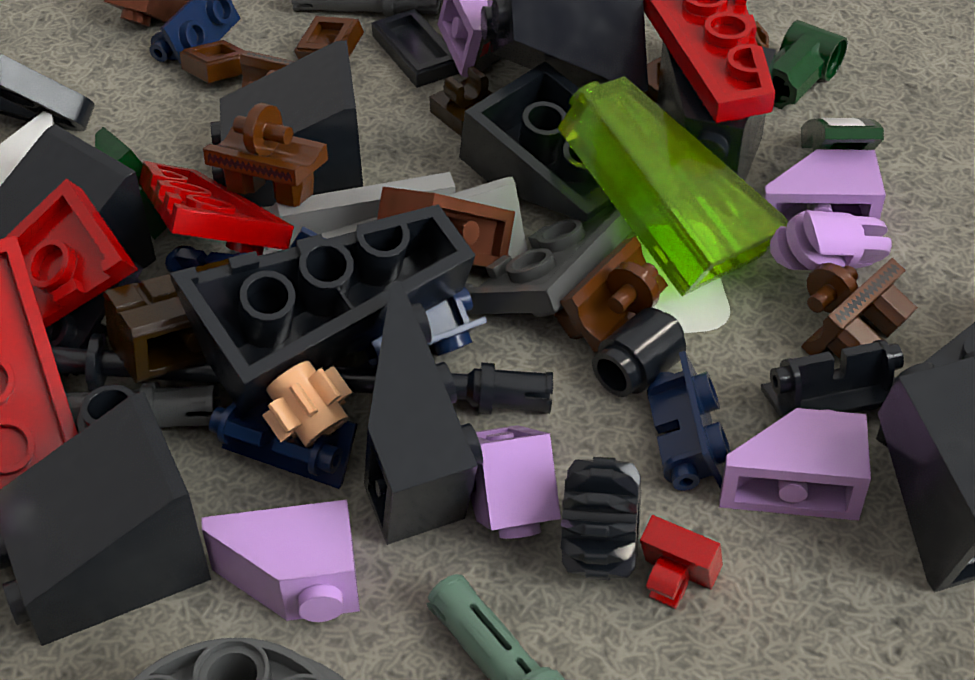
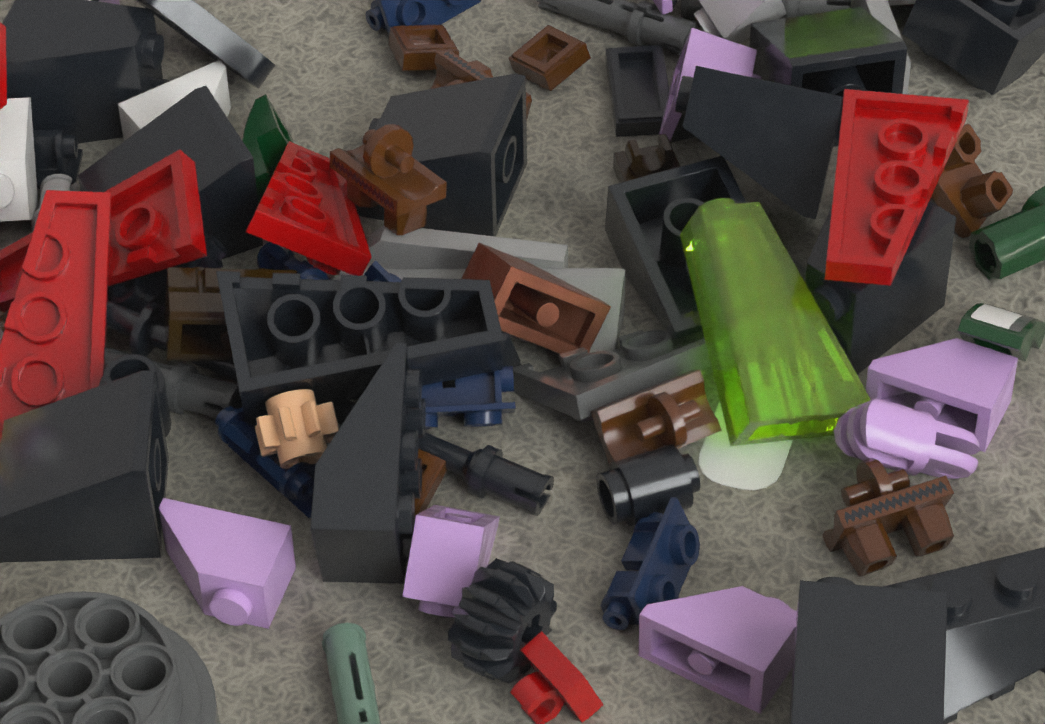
camera: 25 degrees right, 0 degrees up
(814, 384) = (780, 565): black hinge -> none

